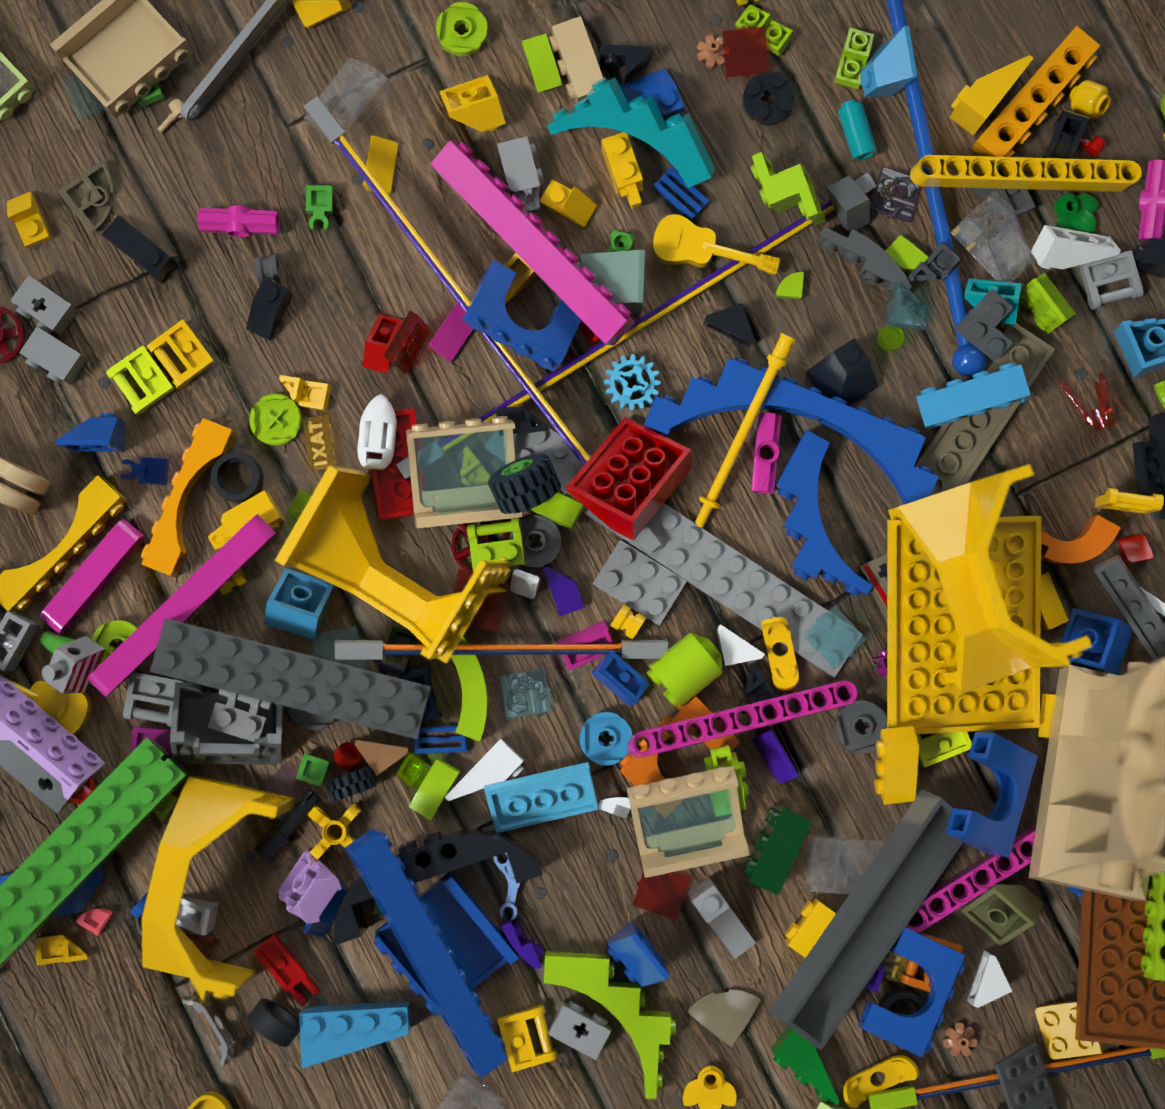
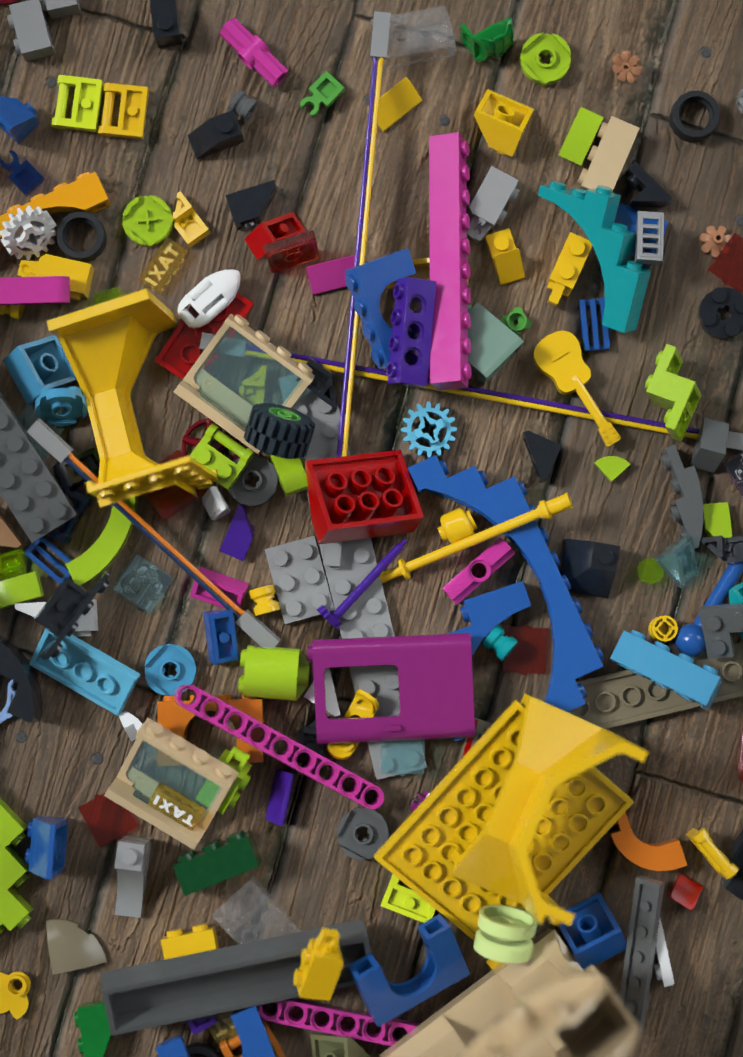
camera: 45 degrees right, 0 degrees up
(194, 510) = (28, 232): none -> white gear
(341, 616) = (61, 405): none -> dark azure plate
(342, 337) = (251, 204): none -> black slope
(409, 53) = (490, 41): none -> green piece
(488, 766) = (65, 608): none -> black bracket
(555, 306) = (420, 321): none -> dark purple brick
(677, 106) = (649, 258): none -> light grey slope
(692, 586) = (362, 587): none -> dark purple piece
(706, 835) = (176, 806): none -> clear yellow tile
(719, 434) = (456, 525): none -> yellow head
(814, 568) = (432, 680): none -> magenta piece
(833, 491) = (502, 645): none -> teal wheel
(852, 480) = (530, 651): none -> clear red piece
(897, 765) = (359, 884): yellow brick -> none
(928, 853) = (319, 966): none -> yellow hinge
(935, 374) = (658, 629): none -> yellow wheel
(1039, 701) = (505, 934): none -> yellowish green wheel
(1051, 607) = (583, 874): yellow slope -> none

